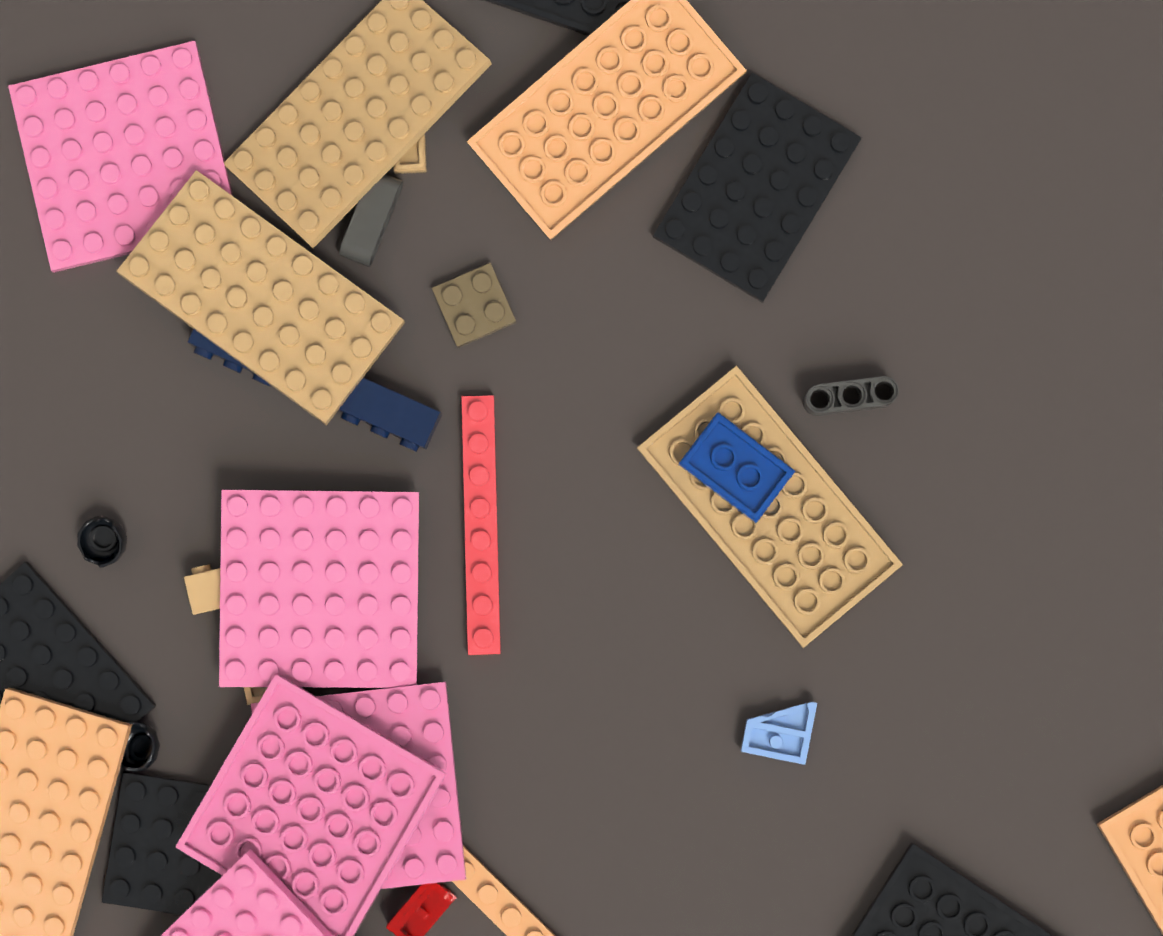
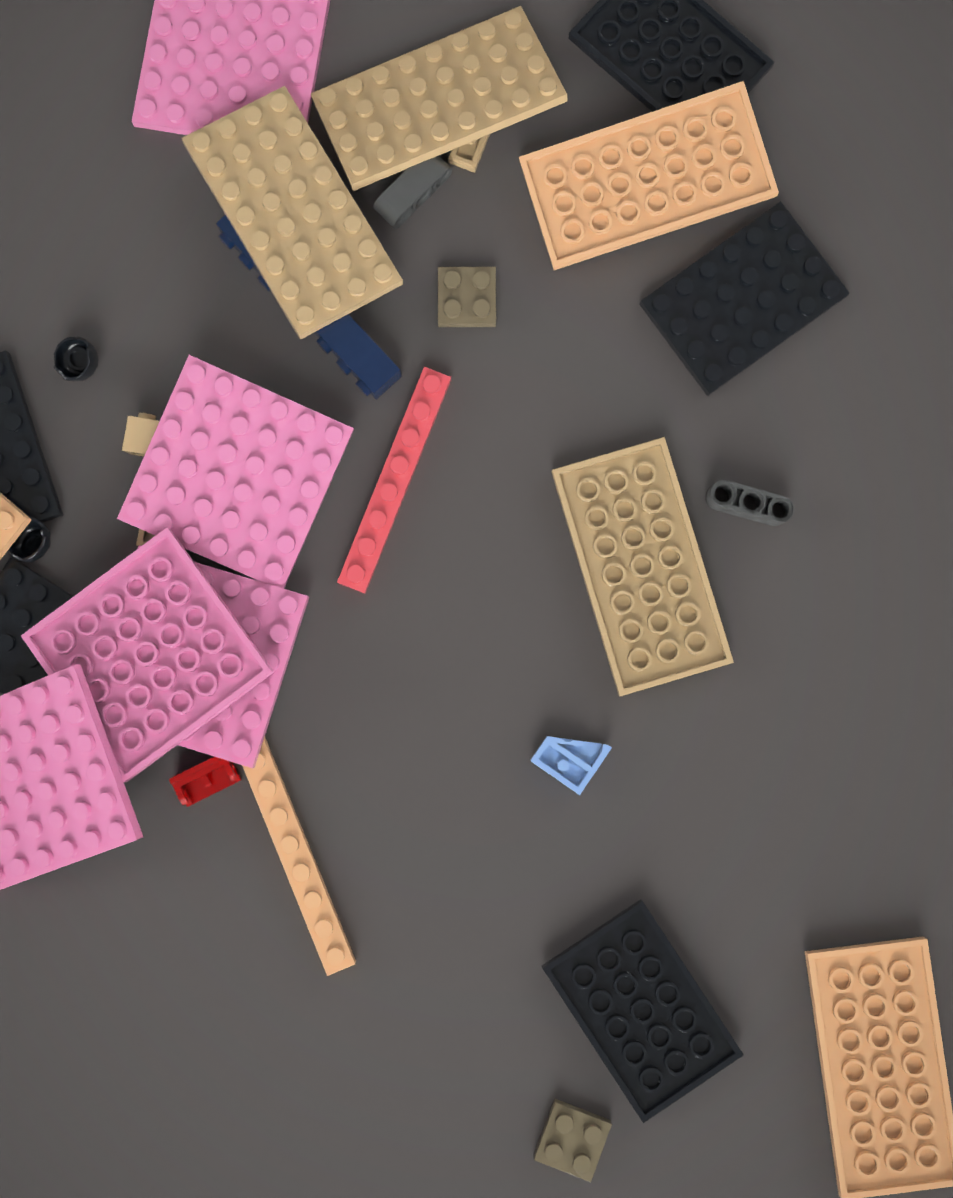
camera: 25 degrees right, 0 degrees up
(736, 467) = (628, 521): blue tile -> none

